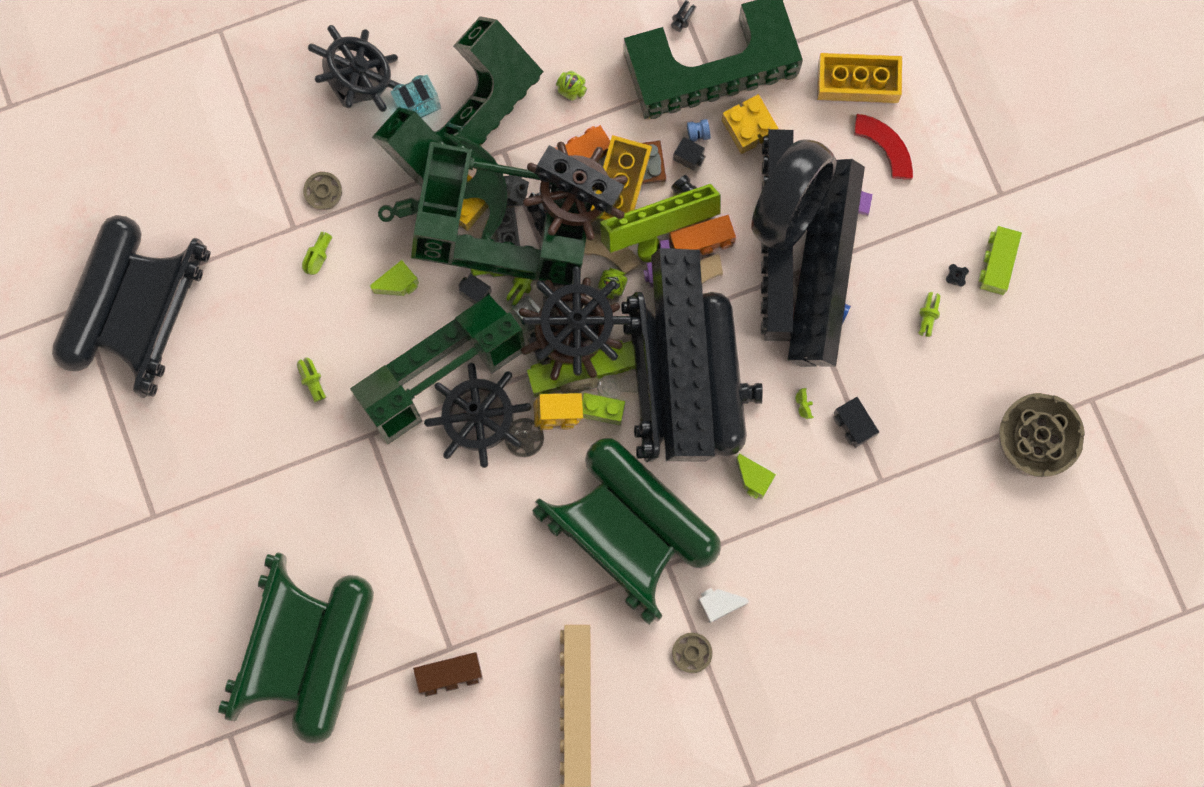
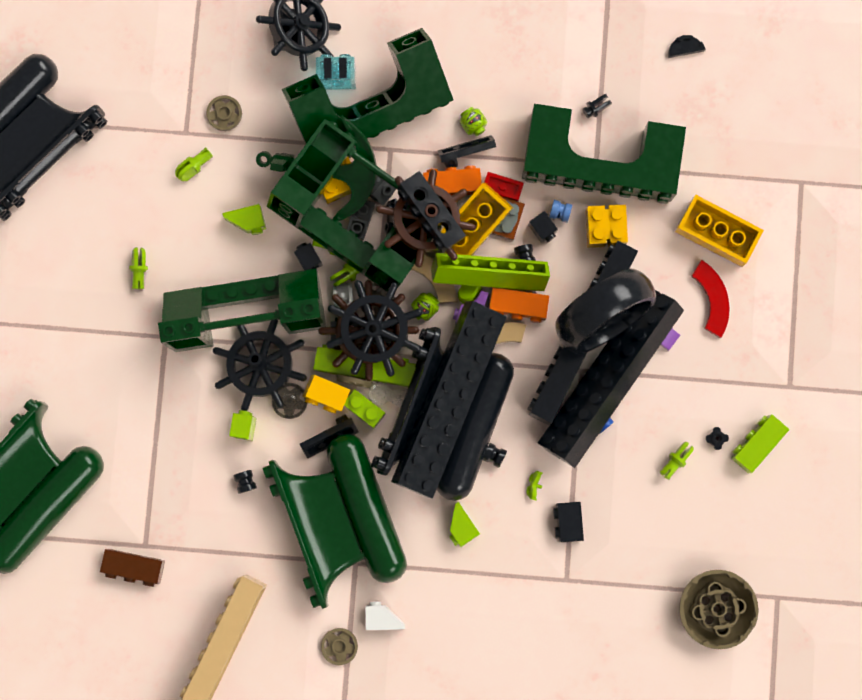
camera: 25 degrees right, 5 degrees up
(491, 481) = (243, 425): none -> lime brick
(519, 536) = (245, 481): none -> black wheel
(564, 128) = (450, 154): none -> black hinge
(576, 460) = (321, 441): none -> black hinge
(635, 131) = (504, 186): none -> red plate

